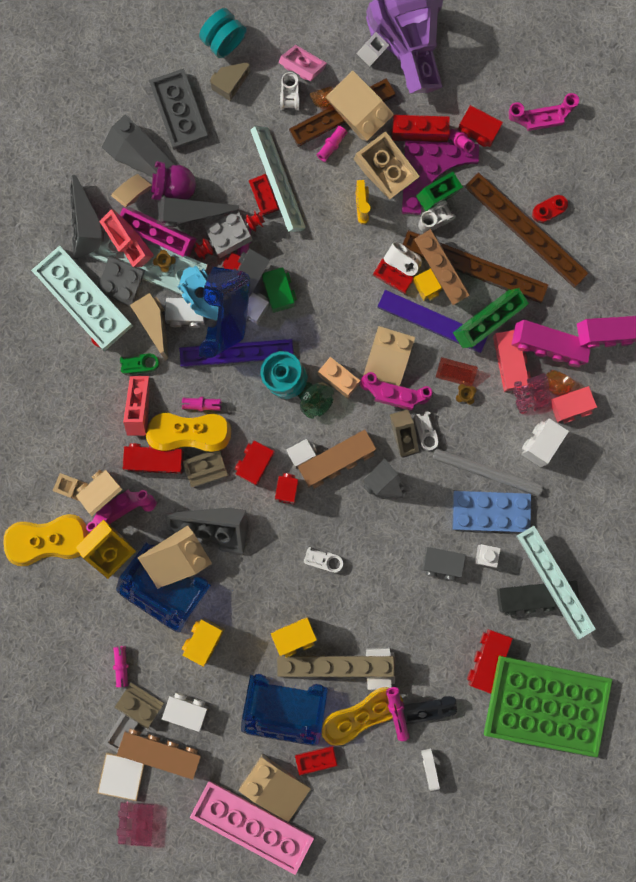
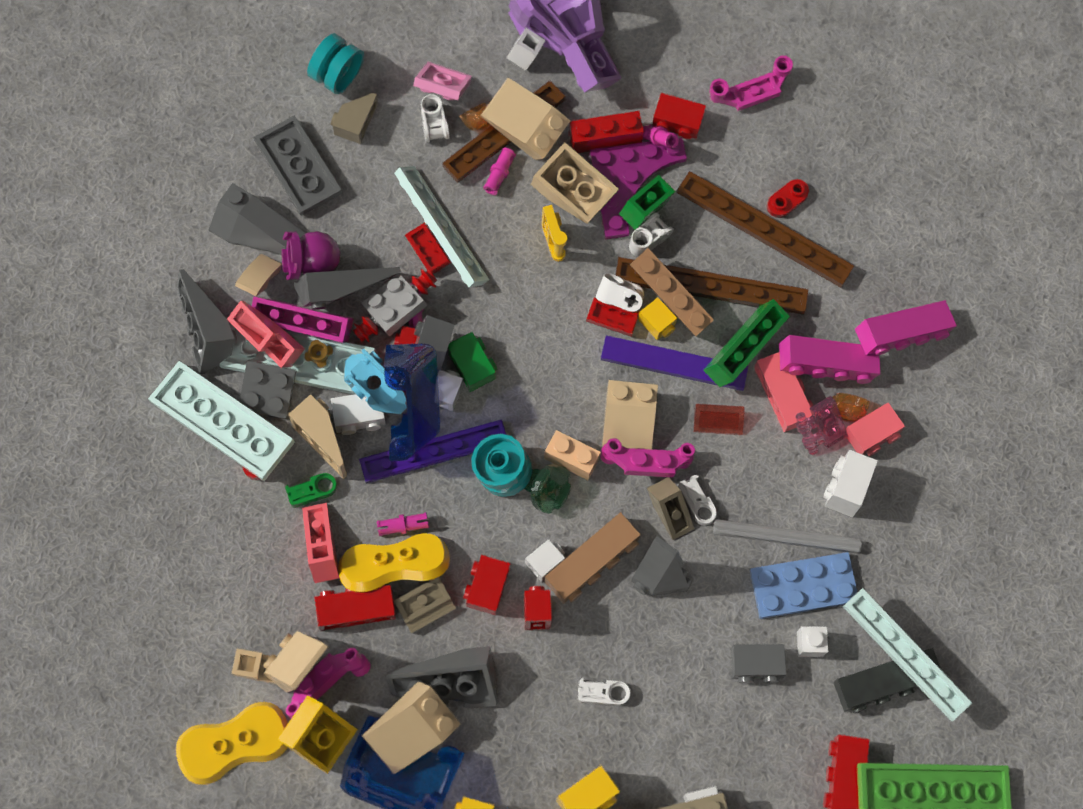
camera: 15 degrees left, 10 degrees down
(466, 389) = (739, 438): pearl gold plate -> none

